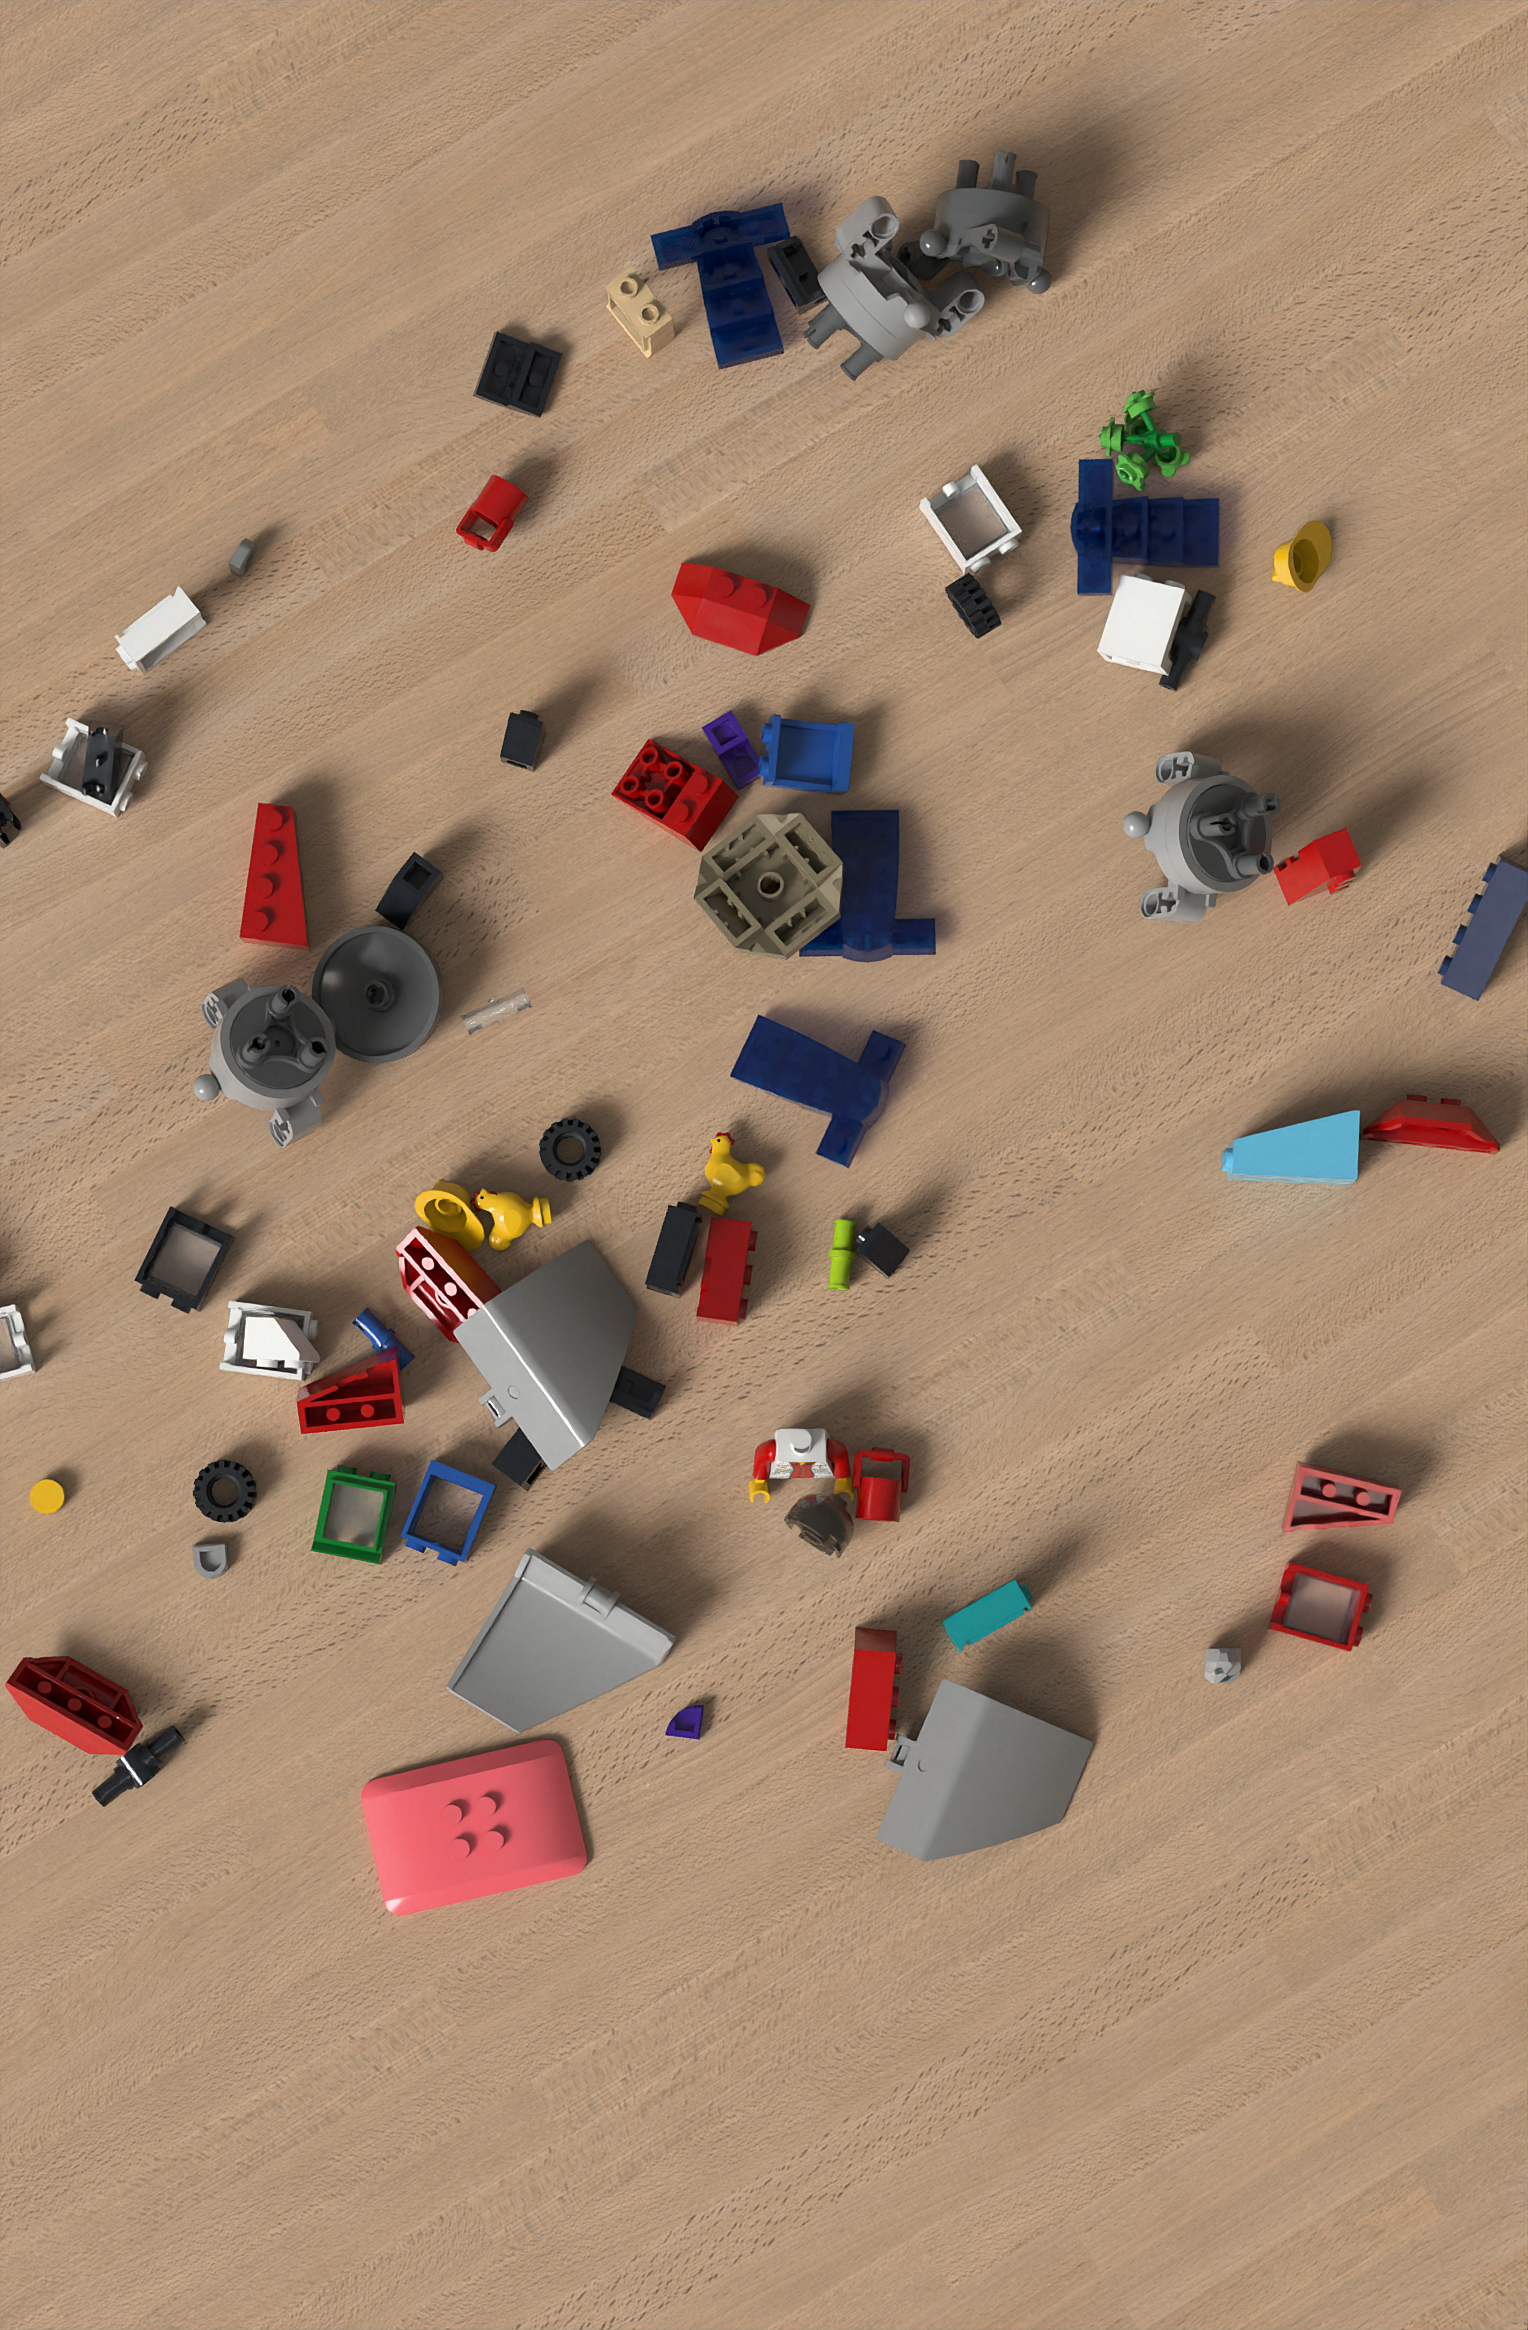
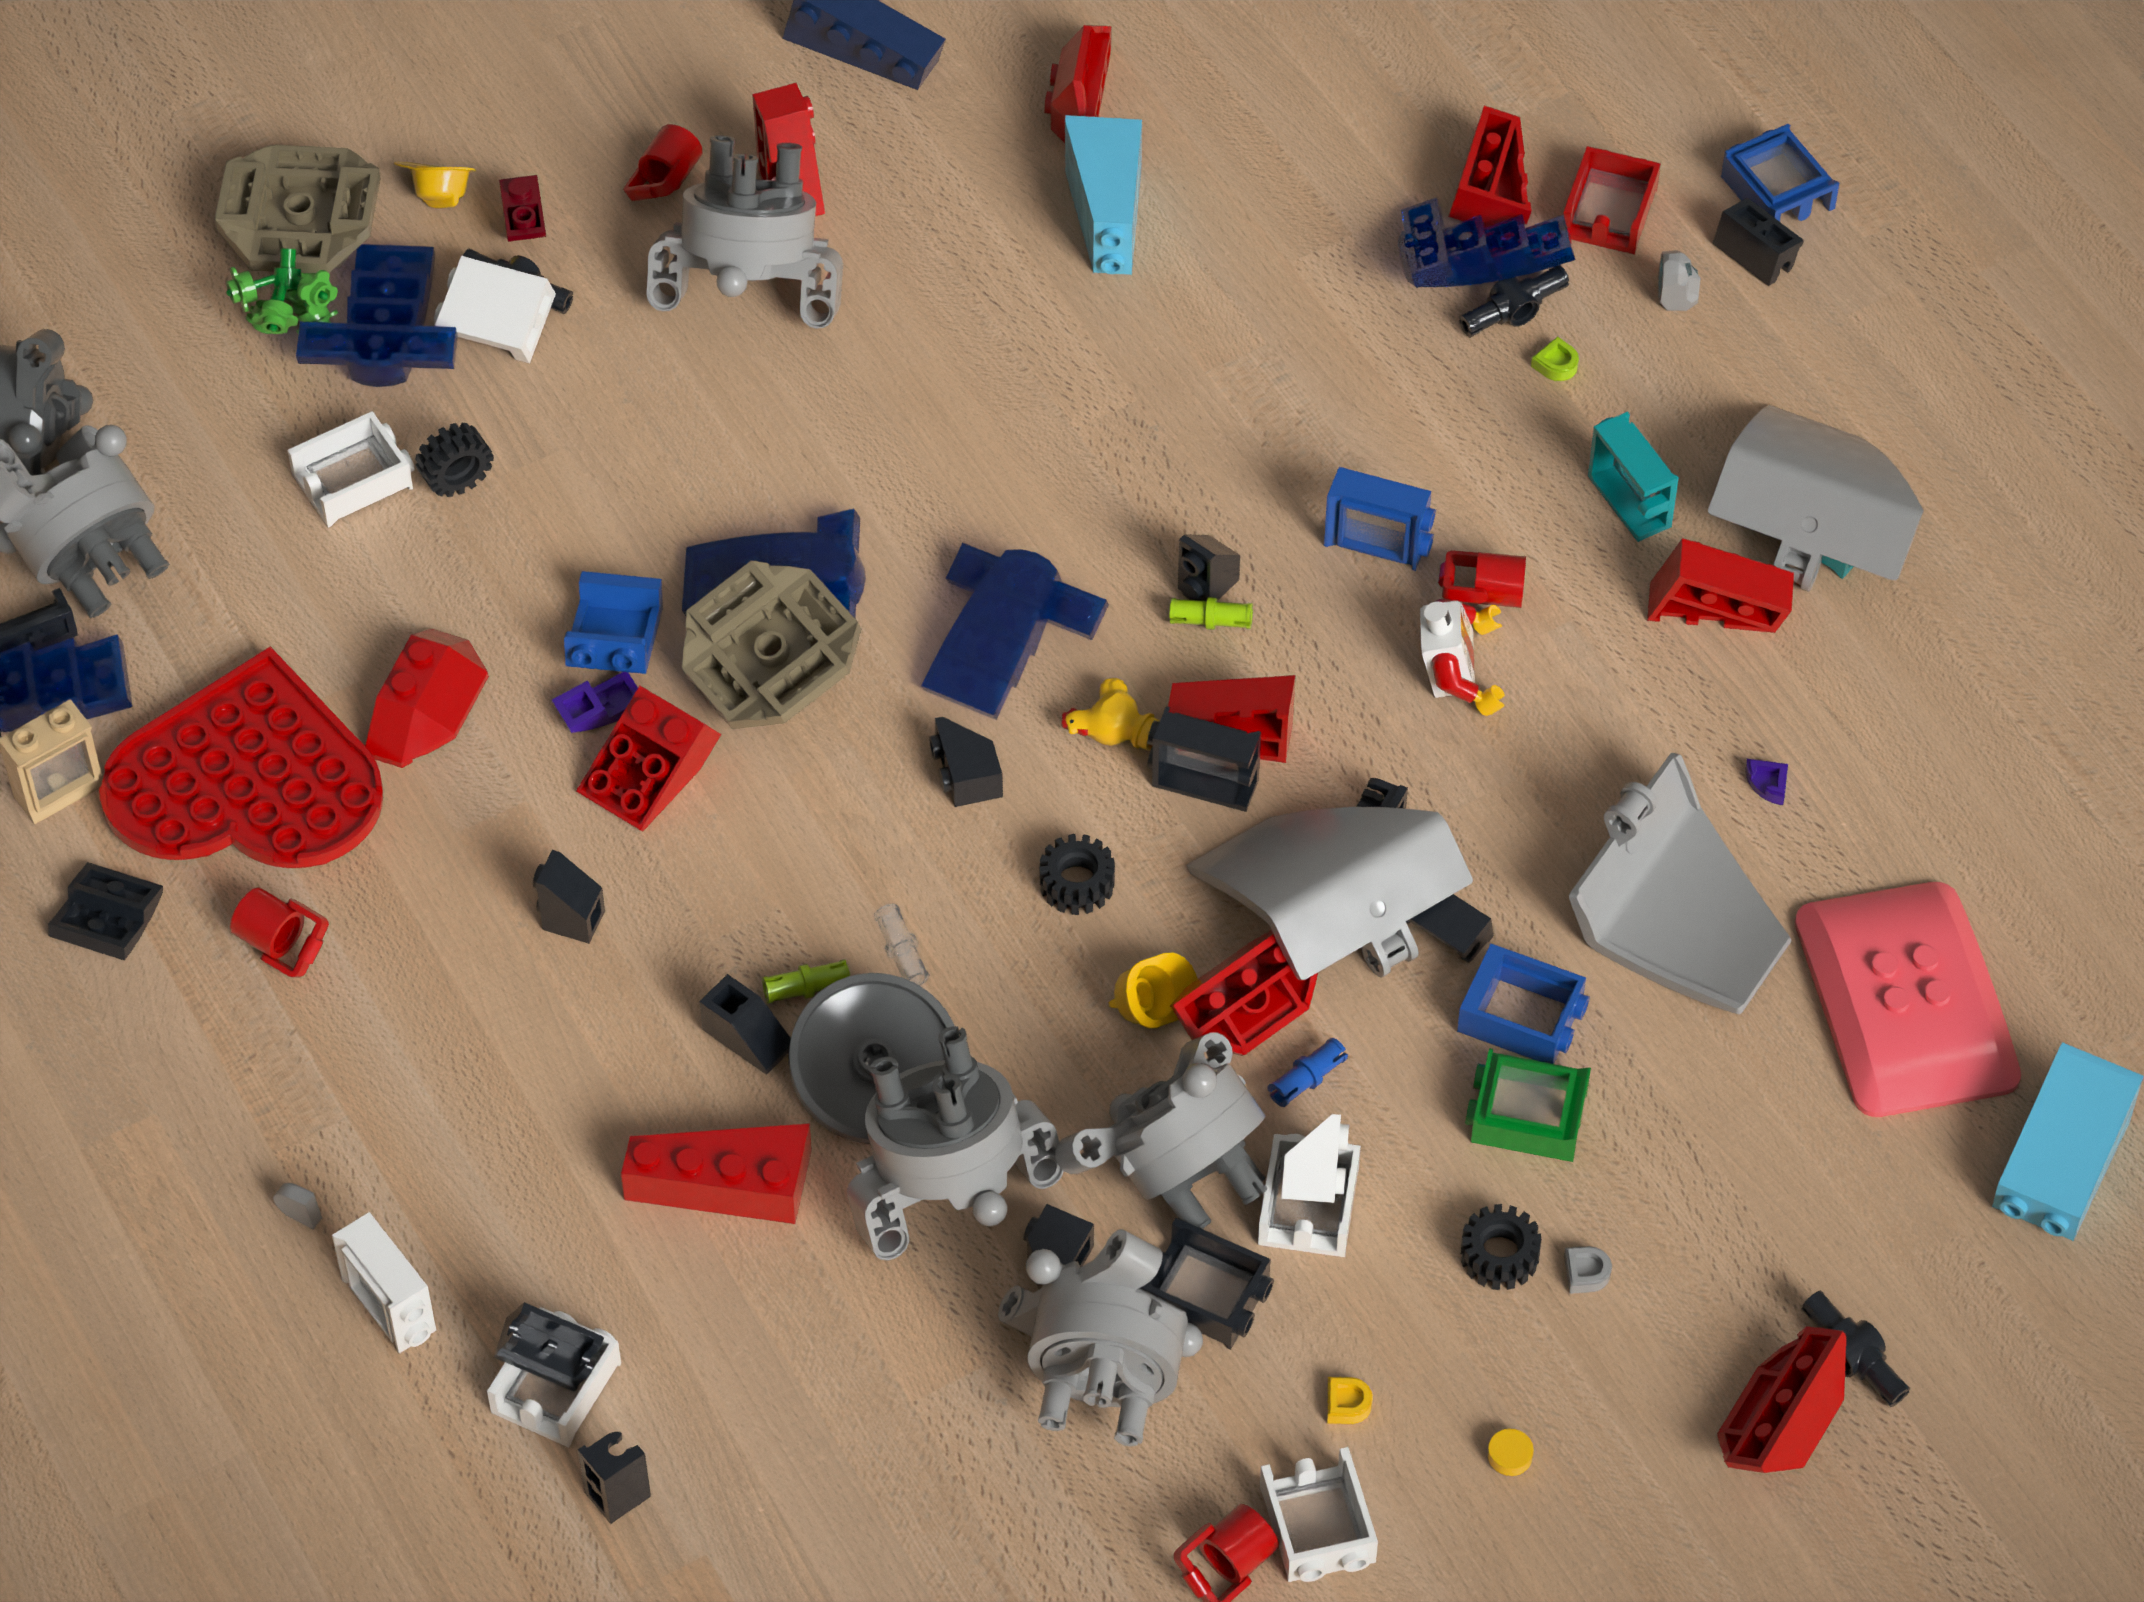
camera: 90 degrees left, 30 degrees down
(91, 1372) = (1348, 1400): none -> yellow tile
(103, 1179) = (1101, 1333): none -> light grey piece
(209, 1144) = (1062, 1234): none -> black slope
(299, 1233) = (1178, 1132): none -> light grey piece
(317, 1943) = (2068, 1142): none -> medium azure slope
(354, 1396) = (1380, 1088): red wedge -> none
(460, 936) = (804, 981): none -> lime pin
(510, 1215) = (1156, 928): yellow animal -> none
(655, 471) = (245, 767): none -> red plate
(676, 1056) = (968, 763): none -> black slope
(822, 1522) = (1530, 627): clear smoke cylinder -> none
(932, 1395) = (1379, 517): none -> blue window
(1136, 1556) = (1556, 360): none -> lime tile
(1197, 1518) = (1514, 301): none -> black pin
(1244, 1482) = (1477, 253): none -> clear blue slope
(1256, 639) = (522, 208): none -> dark red slope
(1257, 408) = (299, 201): none -> dark tan piece
(1274, 1738) = (1757, 240): none -> black hinge
(1330, 763) = (664, 164): none -> red piece
(1351, 1760) = (1778, 174): none -> blue window

